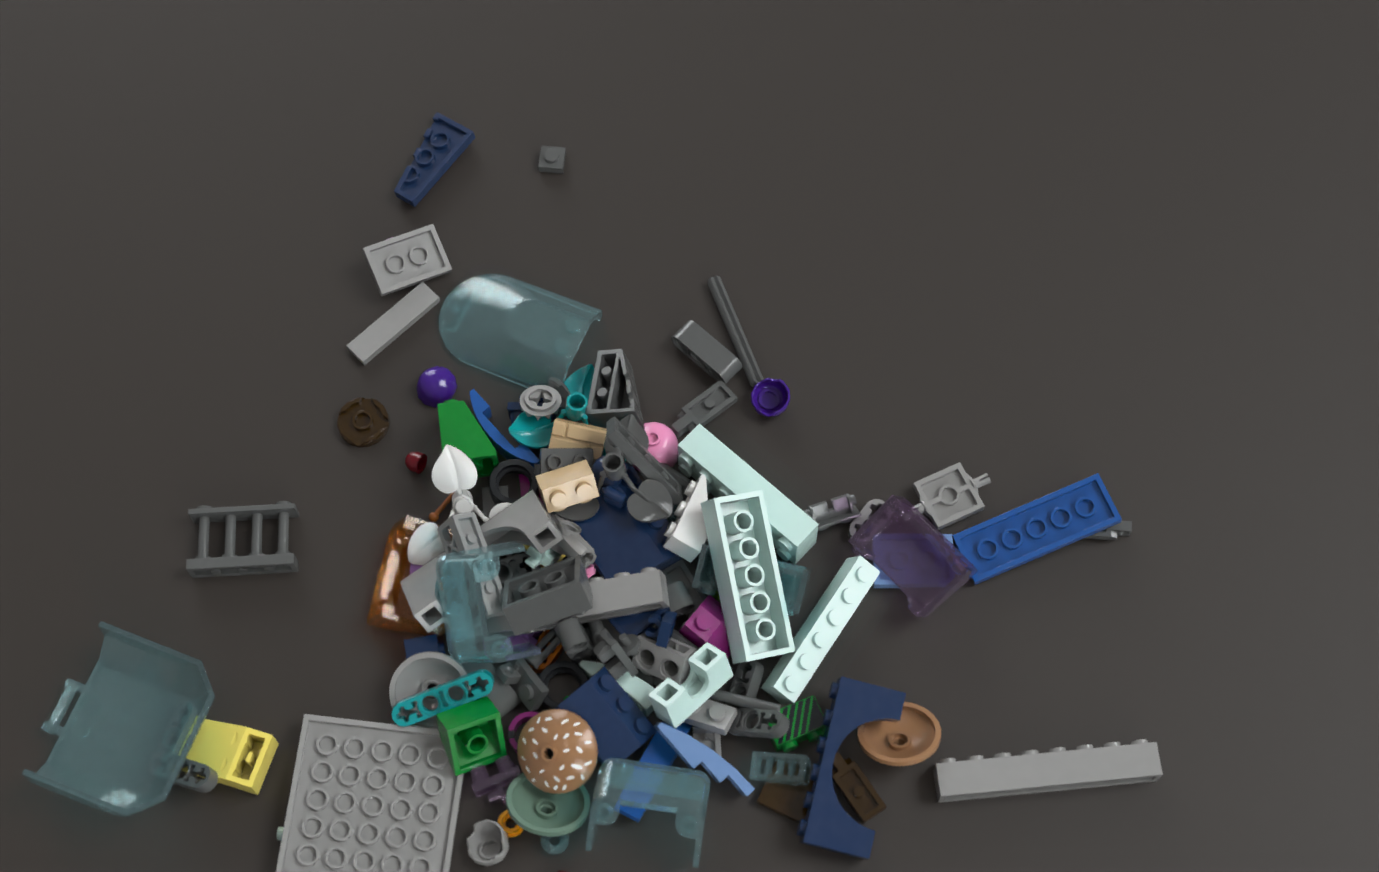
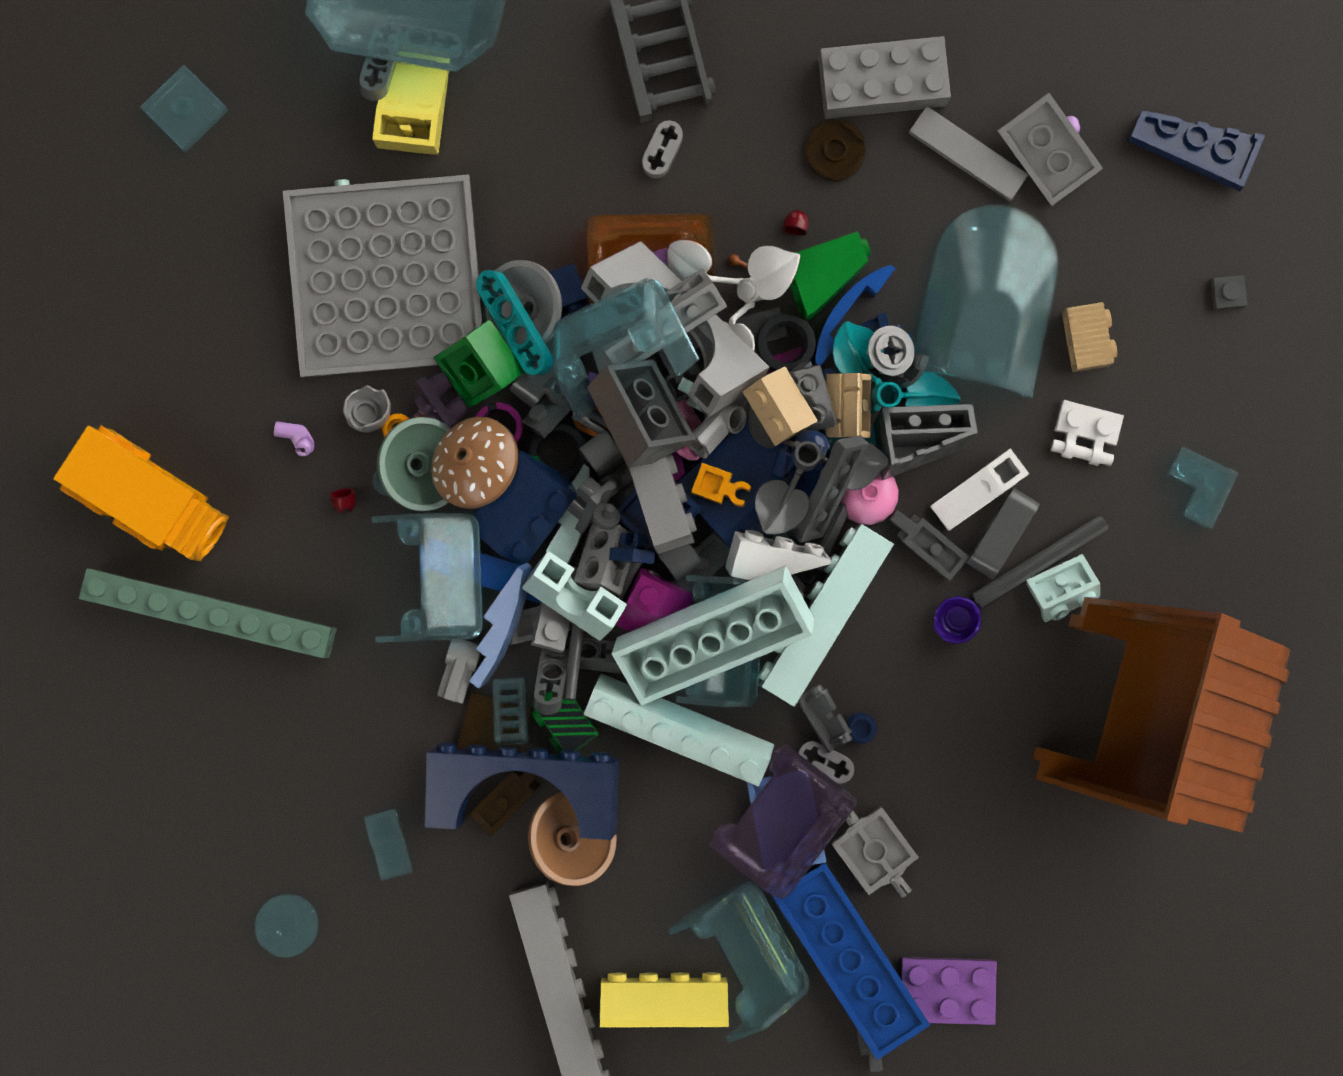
camera: 75 degrees right, 20 degrees up
(314, 371) = (884, 77): none -> light grey brick
(329, 551) = (655, 146): none -> light grey beam
(436, 386) = (896, 224): dark purple hair -> none
(563, 261) = (1089, 336): none -> tan brick
(621, 553) = (715, 485): none -> light orange plate
(632, 276) = (1090, 424): none -> white plate
(667, 360) = (979, 489): none -> white slope
(699, 197) = (1210, 483): none -> clear light blue plate
(728, 803) = (461, 662): none -> light grey piece
(760, 315) = (1064, 588): none -> light aqua bracket
(845, 485) = (862, 727): none -> dark blue plate
(872, 232) = (1182, 715): none -> dark orange piece
(1022, 605) = (757, 952): none -> clear light blue windscreen
(1050, 684) = (664, 1001): none -> light yellow slope
(1071, 456) = (952, 988): none -> medium lavender plate

